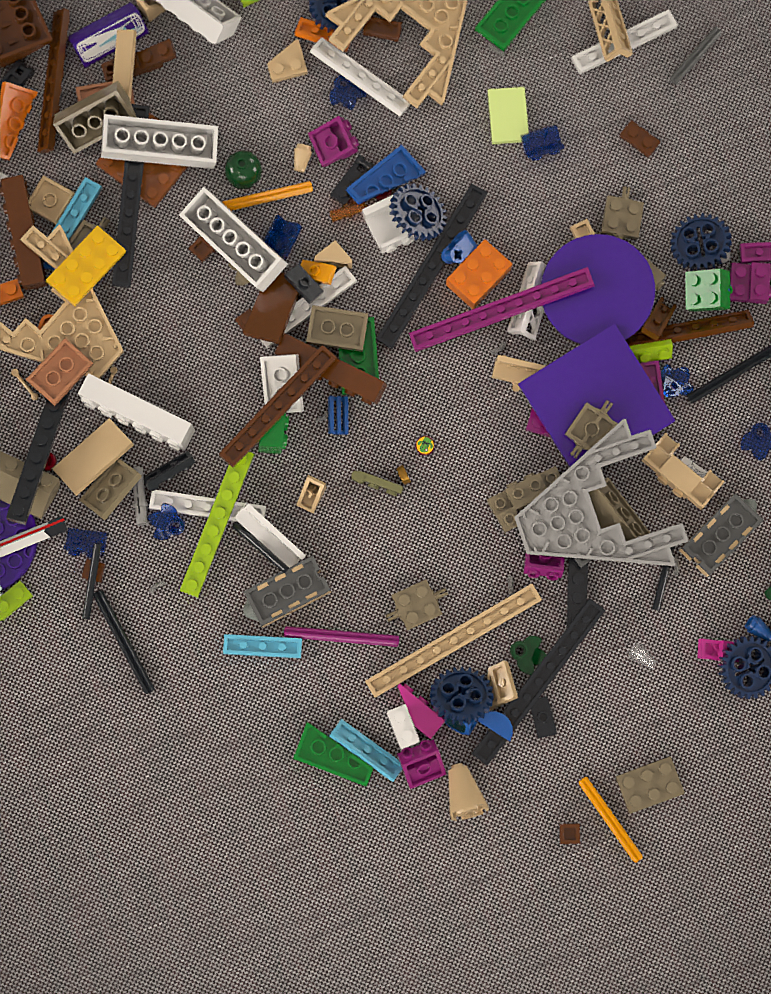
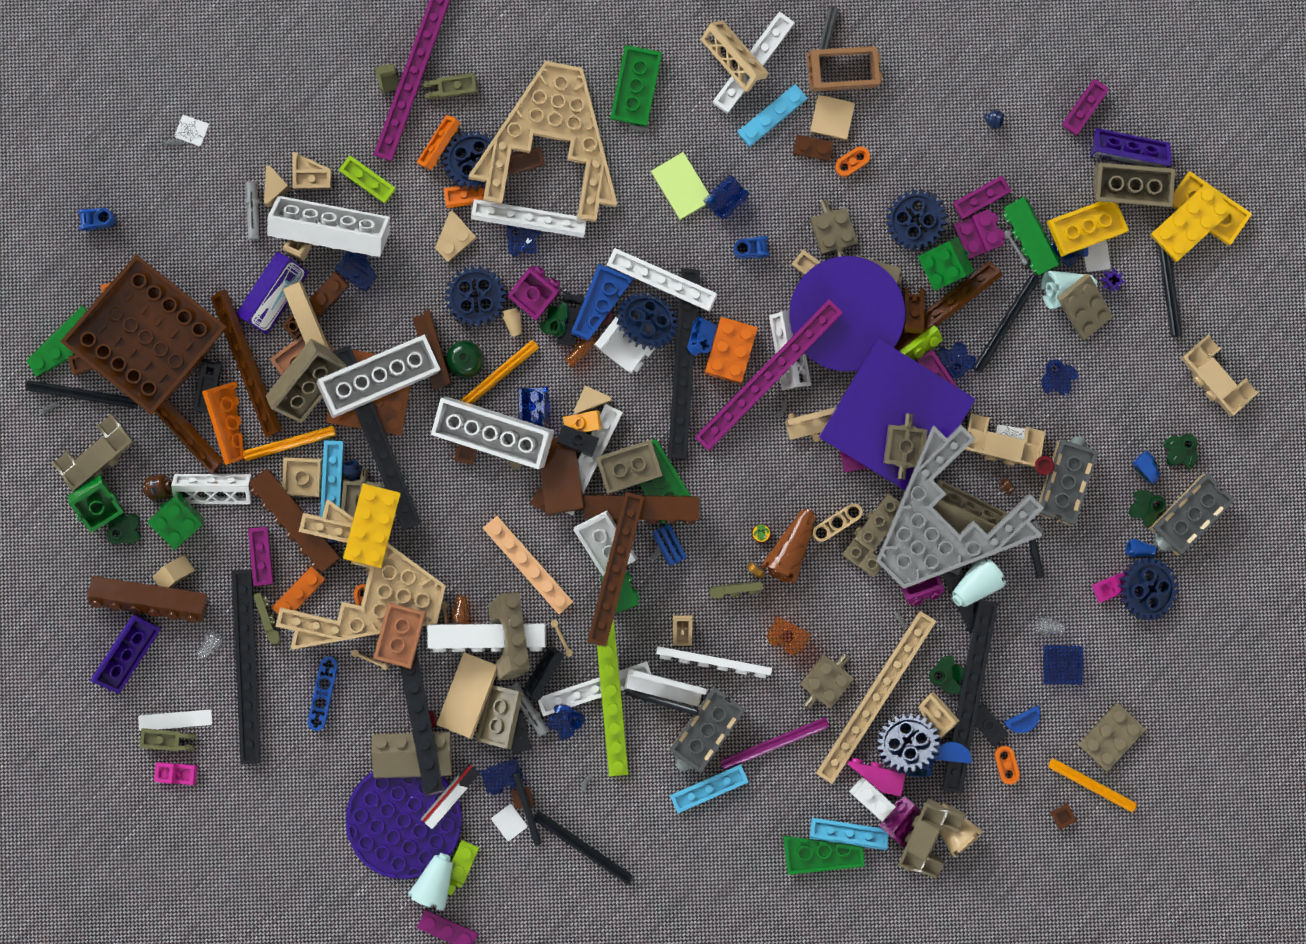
camera: 25 degrees left, 5 degrees up
(54, 166) = (289, 443): none -> light orange axle
(70, 587) = (509, 822): none -> white sticker
(96, 214) = (352, 469): none -> dark blue plate
(119, 517) = (521, 738): none -> black plate
(126, 379) = (460, 611): none -> clear orange cone
(147, 441) = (508, 611): none -> dark tan arch
(190, 49) = (356, 270): none -> clear blue wing
(202, 434) = (554, 623): none -> tan hinge
(205, 371) = (527, 565): none -> light nougat plate
(225, 125) = (425, 325): none -> reddish brown fence
(296, 125) = (459, 298): none -> dark blue gear
(330, 541) = (722, 664): none -> white plate
(339, 174) = (555, 320): none -> dark green plate
(398, 535) = (799, 636): none -> clear orange brick
(433, 785) = (926, 831): none -> dark tan bracket
(440, 473) = (790, 550): none -> dark orange cone
(450, 184) = (662, 279): none -> white plate
(505, 464) = (845, 518): none -> tan beam
(541, 761) = (1006, 764): none -> orange plate
(543, 197) = (753, 248): none -> blue piece
(577, 730) = (1024, 721): none -> blue tile
(597, 583) = (979, 581): none -> light aqua cone
(618, 94) = (772, 115): none -> medium azure plate
(637, 697) = (1062, 665): none -> clear blue plate
(665, 513) = (1007, 486): none -> reddish brown plate
(667, 165) = (852, 162): none -> orange plate
(670, 86) = (815, 76): none -> medium nougat window
(670, 121) = (832, 117): none -> tan tile
(708, 508) = (1044, 465): none -> dark red tile

